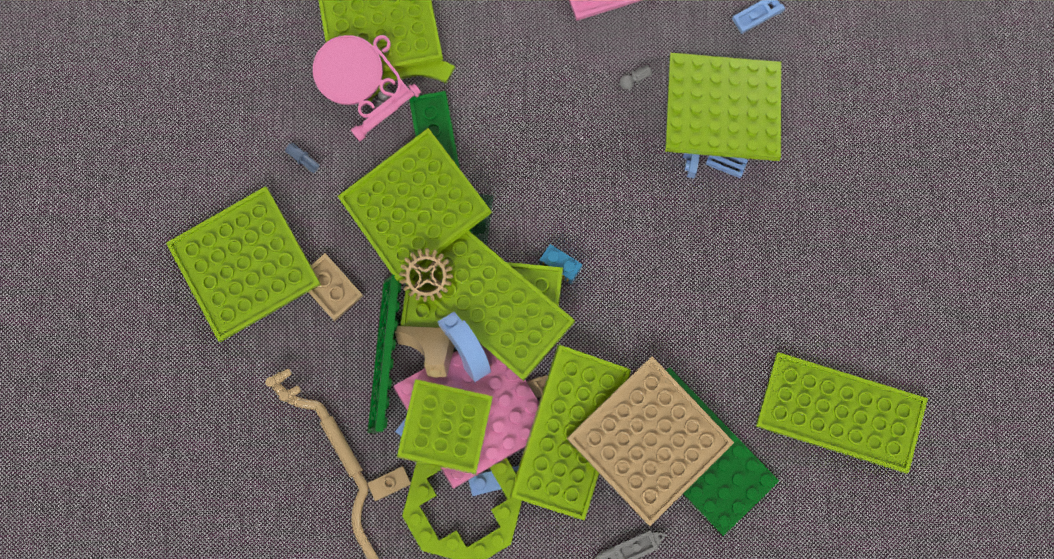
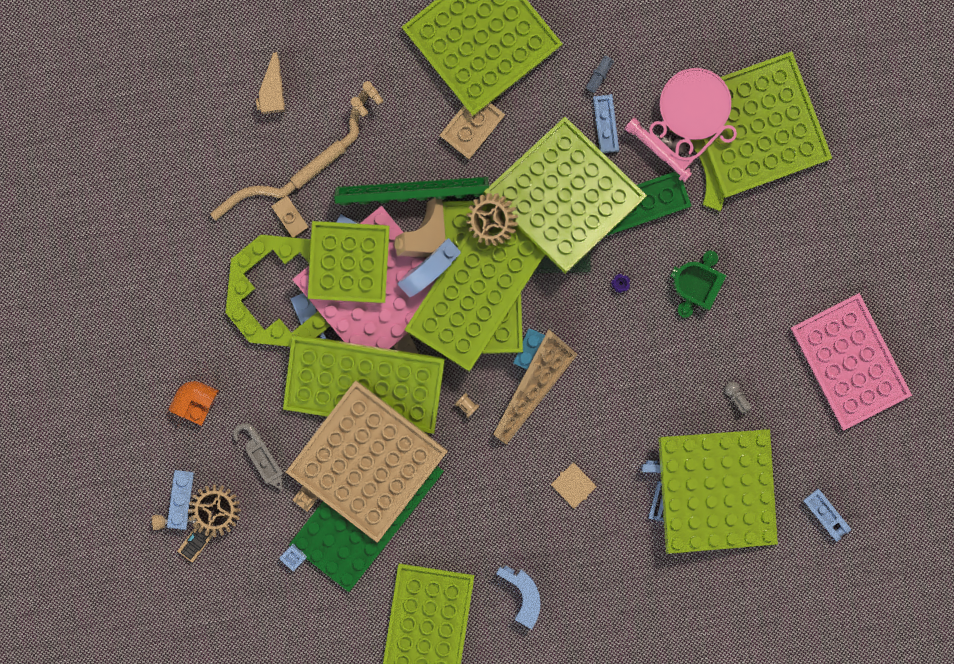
camera: 85 degrees right, 10 degrees up
(258, 482) = (271, 91): none -> tan slope
(351, 160) = (606, 123): none -> light blue tile
(509, 164) = (620, 278): none -> dark purple plate
(521, 97) = (697, 283): none -> green piece
(586, 253) = (543, 372): none -> tan wing
(606, 334) = (466, 405): none -> tan bush
(678, 511) = (305, 498): none -> tan tile
(699, 244) = (573, 485): none -> tan piece
(737, 533) = (293, 557): none -> light blue plate
(808, 300) = (530, 605): none -> light blue arch

